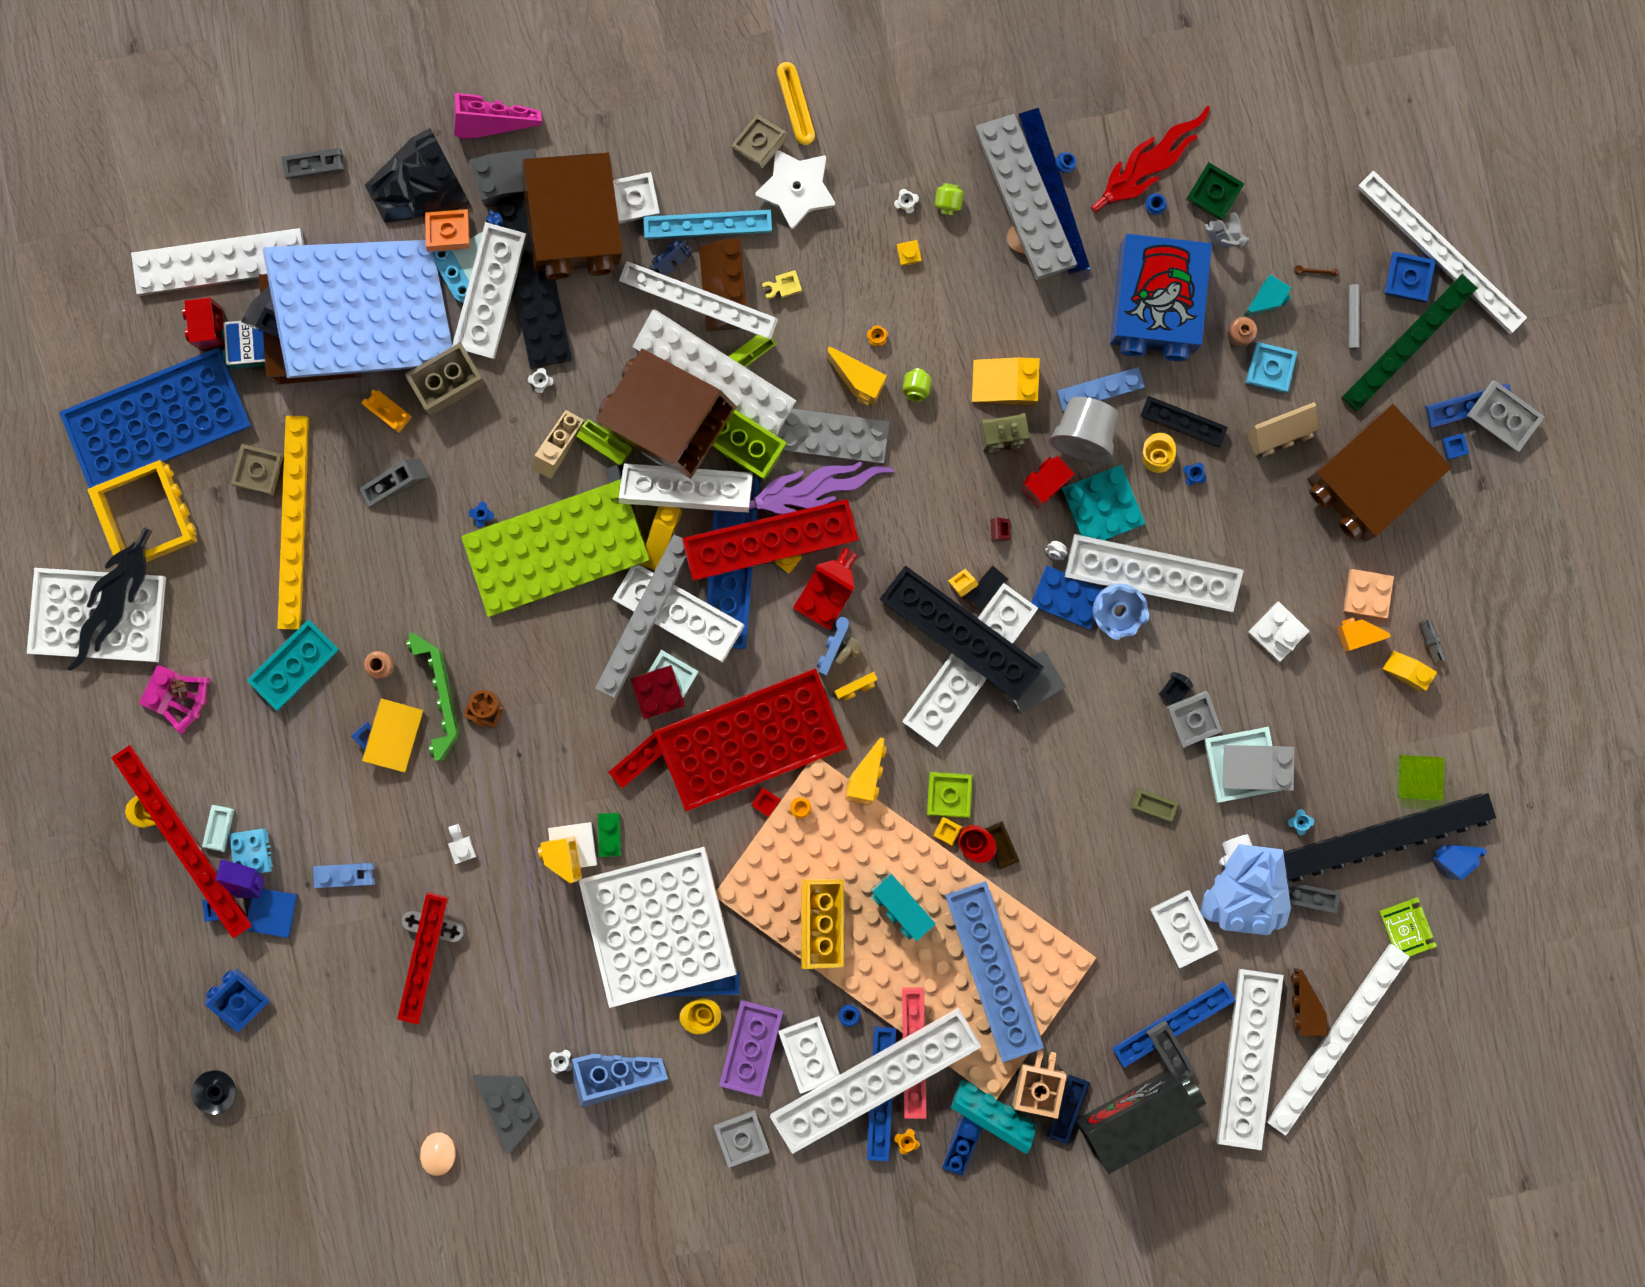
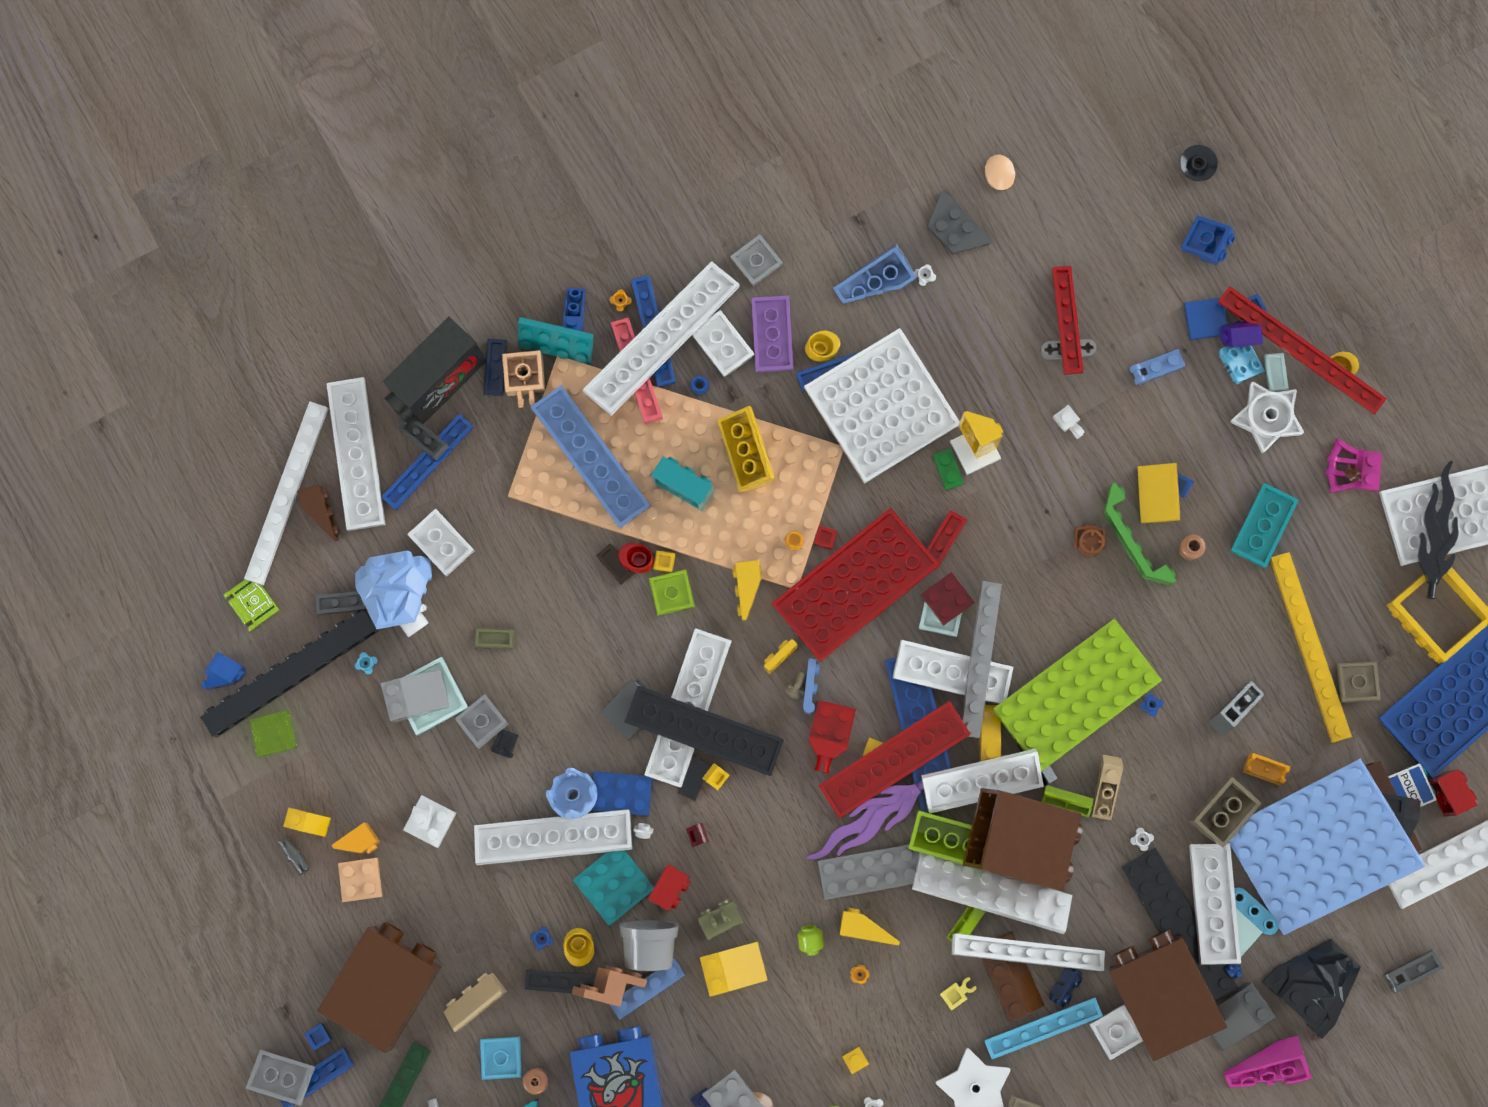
camera: 175 degrees right, 5 degrees down
(228, 784) = (1276, 404): none -> white plate
(447, 230) = (1272, 947): orange plate -> none
(1141, 399) = (609, 985): none -> nougat bracket

